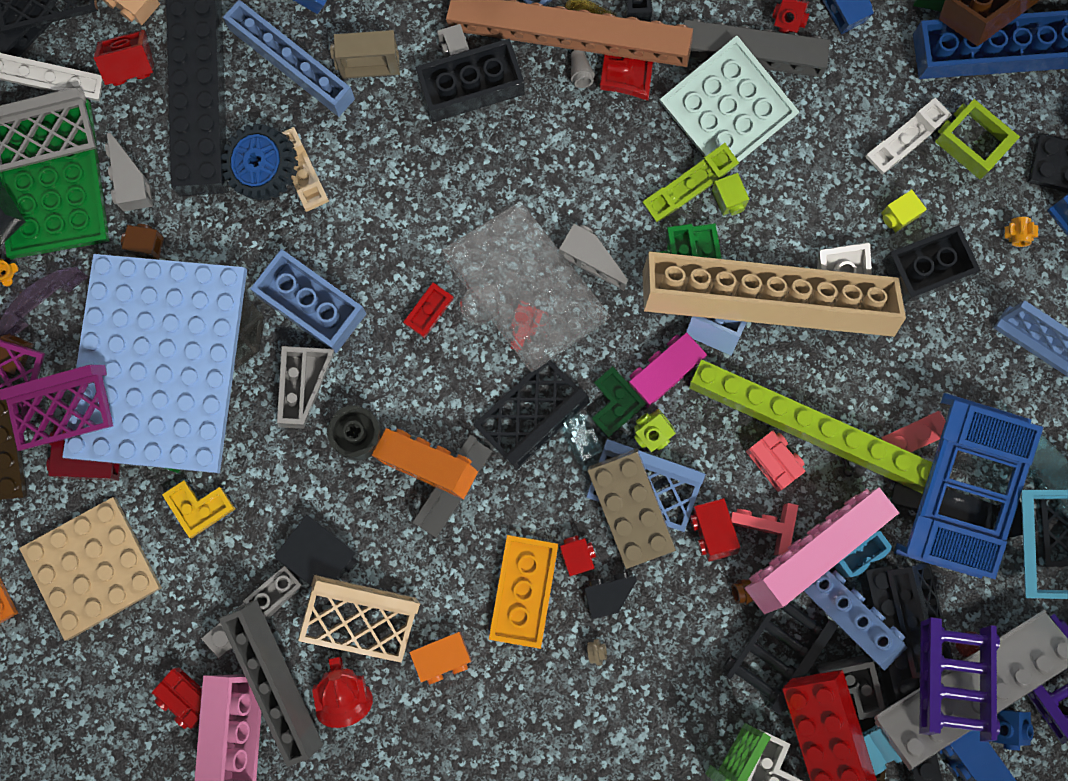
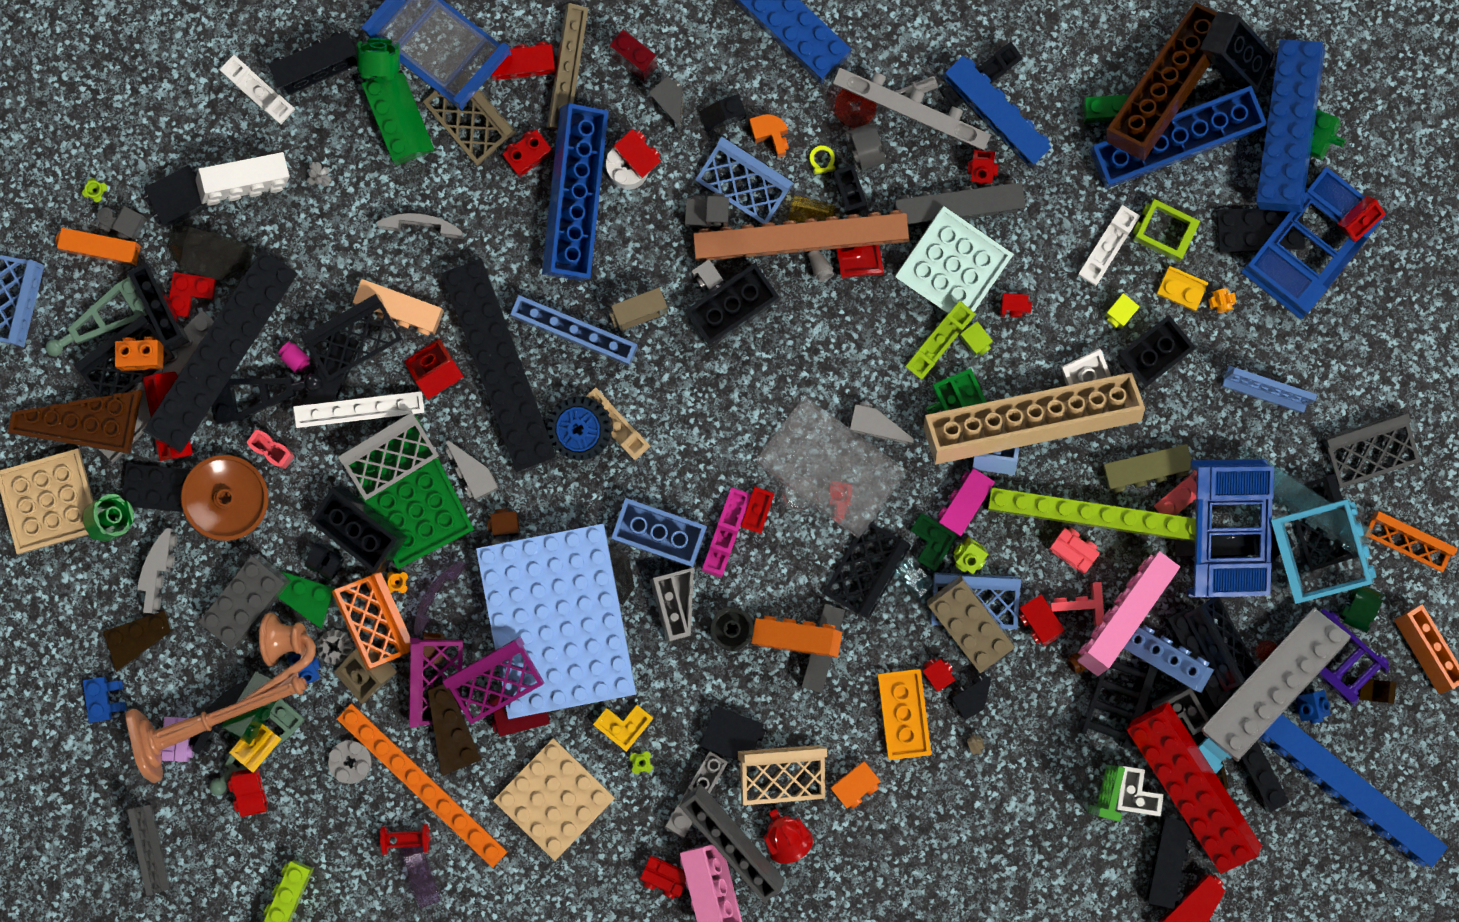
camera: 15 degrees left, 5 degrees up
(207, 562) = (636, 758): none -> lime plate
(384, 325) = (726, 532): none -> dark pink slope
(785, 170) = (1015, 305): none -> red brick
(859, 559) = (1159, 612): dark azure brick -> none
(886, 392) = (1147, 467): none -> olive brick
(933, 691) = (1239, 697): dark purple fence -> none
(977, 208) = (1182, 288): none -> yellow plate

